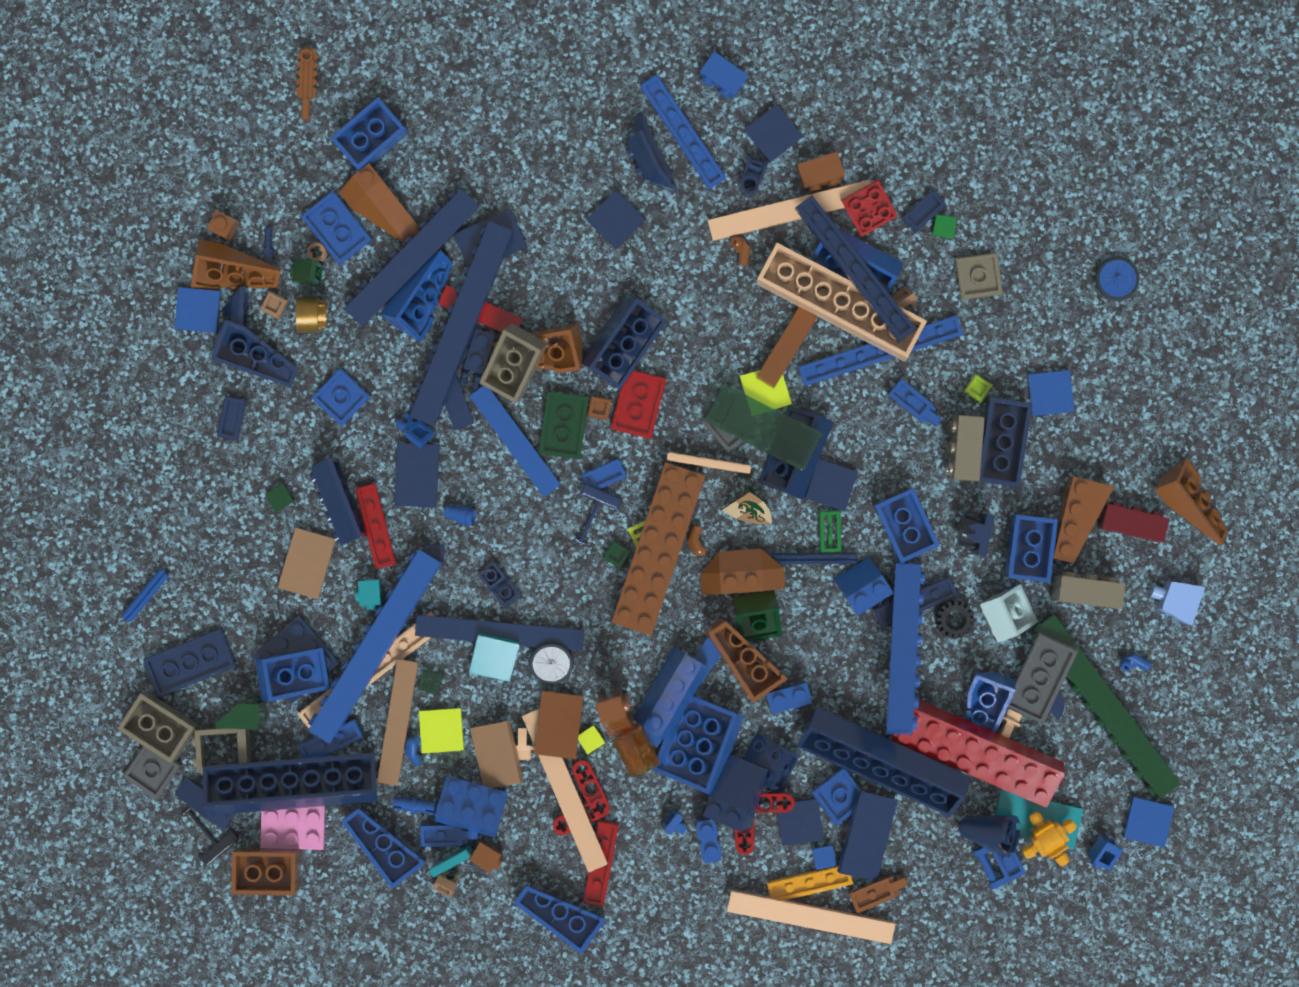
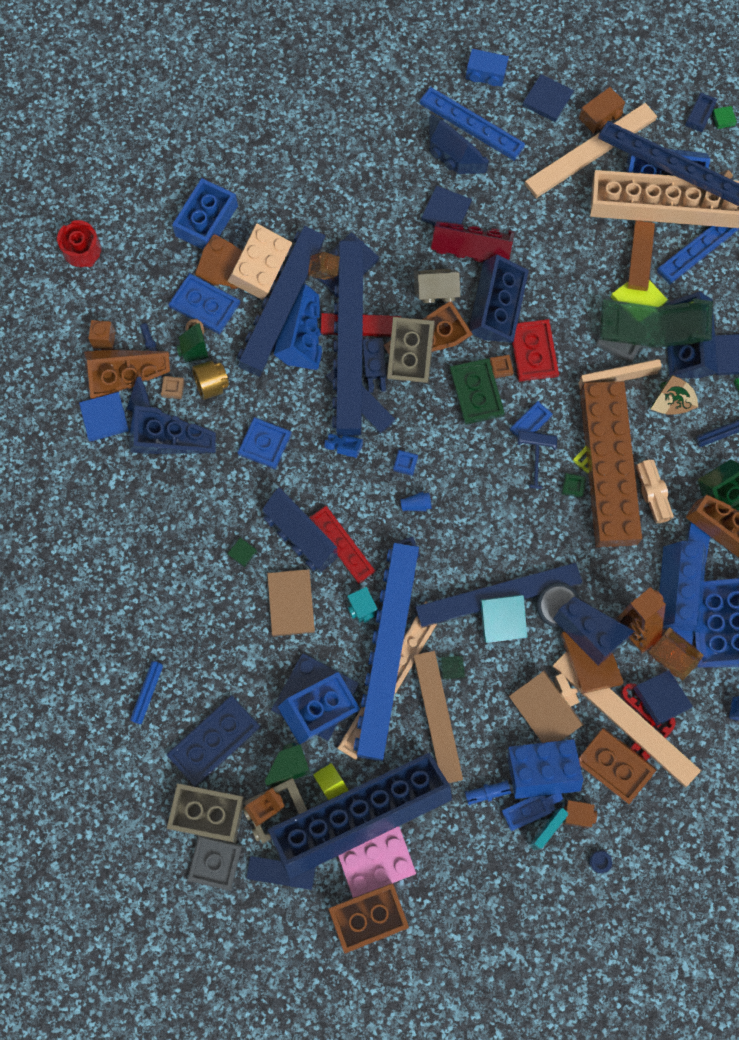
camera: 20 degrees left, 15 degrees down
(208, 745) = (264, 807): none -> dark orange bracket
(218, 847) = (310, 916): black piece -> none
(231, 418) = (170, 499): dark blue tile -> none
(237, 107) = (79, 244): none -> red brick
(279, 743) = (330, 782): none -> neon yellow slope
(306, 81) = (132, 195): dark orange piece -> none
(317, 747) = (394, 750): blue tile -> none
(386, 851) = (477, 847): blue wedge -> none
(402, 211) = (259, 261): none -> light nougat brick
(411, 750) = (461, 739): blue arm -> none
(417, 475) = (362, 485): dark blue tile -> none
(441, 730) = (482, 709): neon yellow tile -> none
(444, 885) = (551, 861): medium nougat tile -> none
(463, 241) = (324, 265): none -> clear orange brick
(467, 469) = (405, 462): none -> blue tile
(489, 902) = (600, 862): none -> dark blue tile
(499, 585) = (479, 553): dark blue slope -> none
(515, 440) = (438, 421): blue tile -> none
(537, 828) = (616, 765): none -> dark orange plate
(564, 306) = (437, 284): none -> dark tan brick
(565, 920) = (680, 845): blue wedge -> none
(567, 702) = (591, 629): none -> dark blue wedge
(590, 739) = (627, 662): neon yellow tile -> none
(598, 879) = (695, 793): red tile -> none
(606, 785) = (663, 697): none -> dark blue tile
(626, 268) = (471, 241): none -> dark red wedge
(689, 591) = (654, 491): none -> light nougat piece
(694, 543) = (638, 447): dark orange arm -> none
(742, 248) = (564, 193): dark orange arm -> none
(742, 572) = (694, 456): dark orange wedge -> none
(753, 172) = (546, 134): dark blue piece -> none
(869, 208) = (656, 122): red tile -> none

